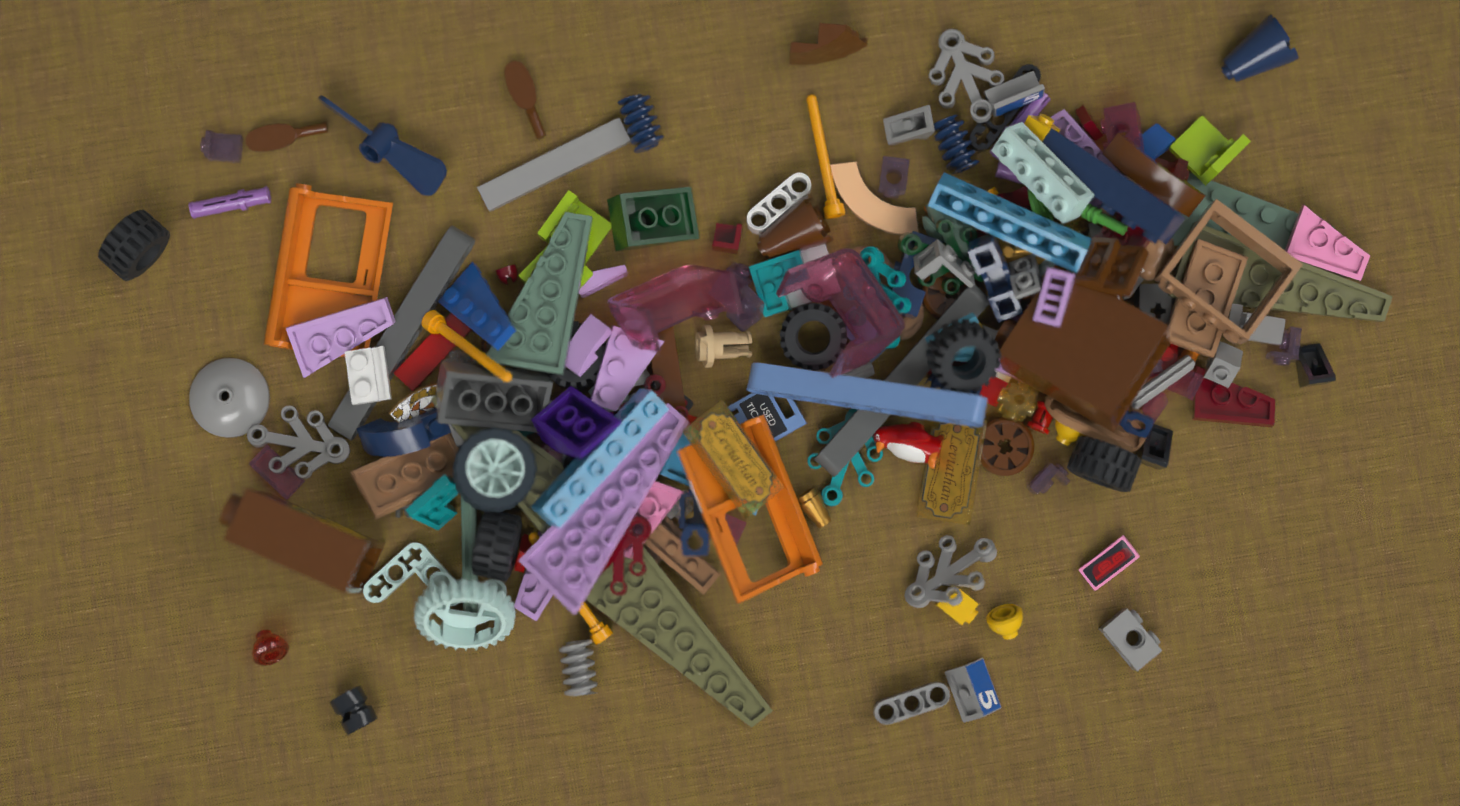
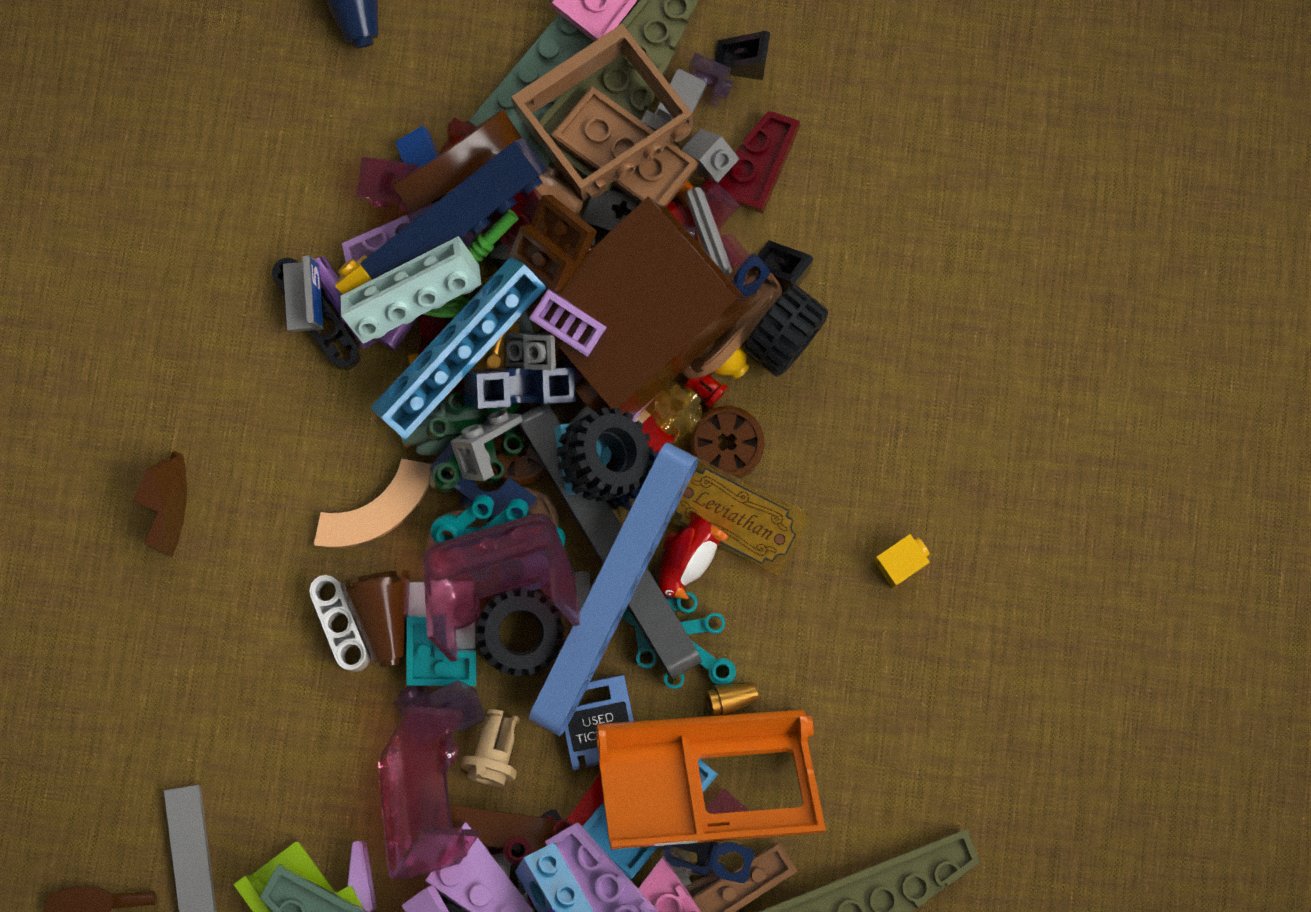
camera: 75 degrees left, 5 degrees down
(640, 122) = (179, 765): dark blue piece -> none
(652, 218) = (305, 787): dark green slope -> none
(727, 238) = (362, 701): dark red panel -> none
(733, 459) = (641, 780): tile -> none
(832, 207) = (365, 557): light orange piece -> none
(898, 166) = (341, 465): brick -> none
(909, 125) = (298, 433): light grey slope -> none
(924, 703) = (1013, 639): light grey beam -> none
(947, 574) = (862, 561): light grey plant -> none
(954, 145) = (340, 387): dark blue piece -> none
(964, 70) = (255, 346): light grey plant -> none
(973, 690) = (1011, 574): panel -> none
(1005, 620) = (937, 508): yellow brick -> none
(1043, 481) = (782, 410): bracket -> none
(1088, 123) = (368, 220): dark red tile -> none
(1109, 562) = (904, 363): slope -> none
(1116, 630) = (989, 381): light grey brick -> none
(1206, 149) = (448, 93): lime bracket -> none

